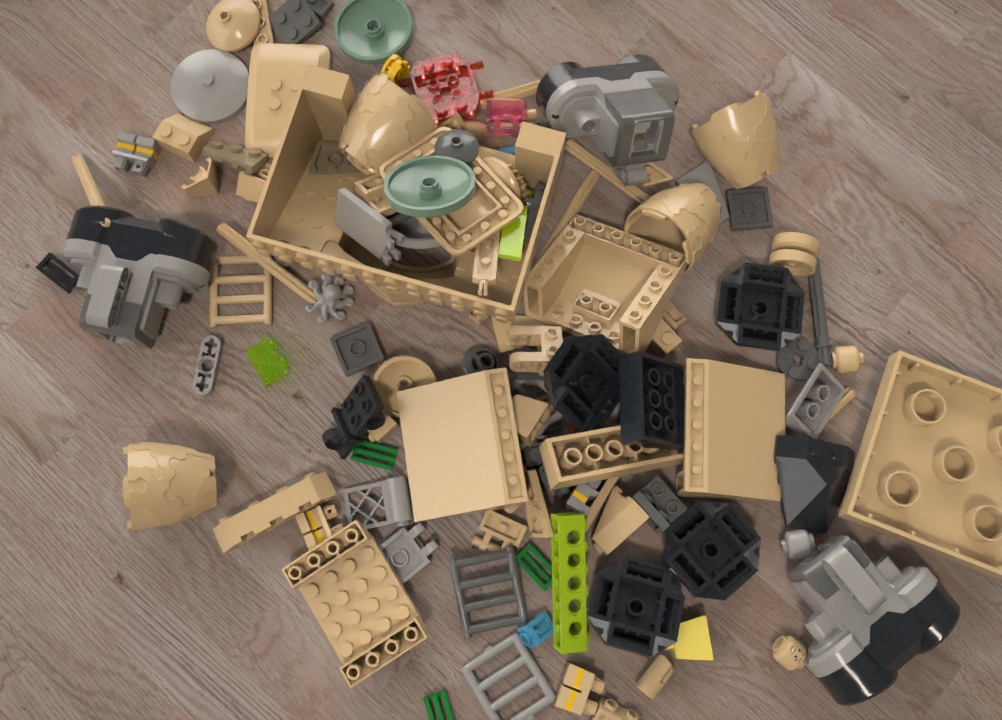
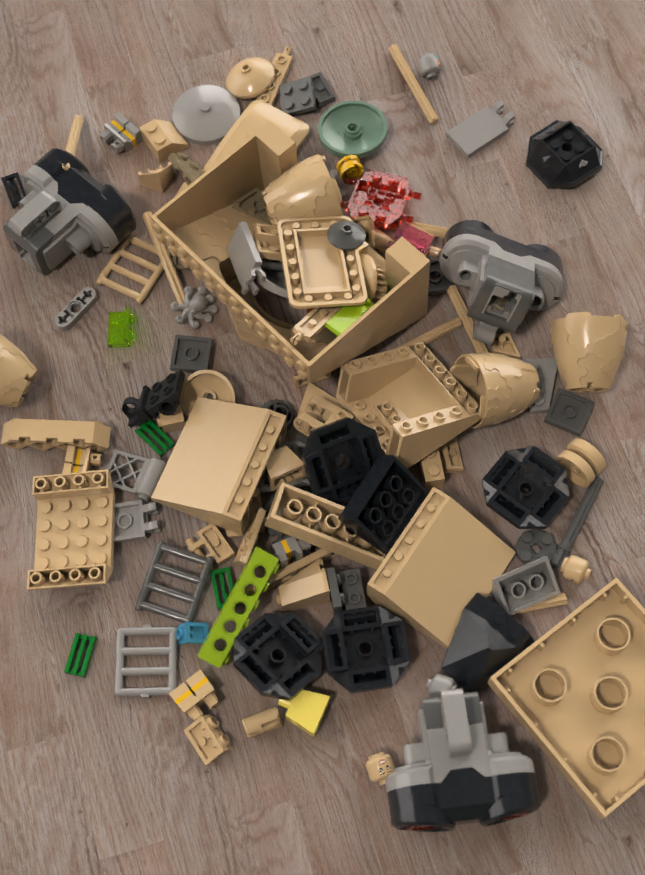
camera: 35 degrees right, 10 degrees down
(429, 186) = (303, 247): sand green dish -> none

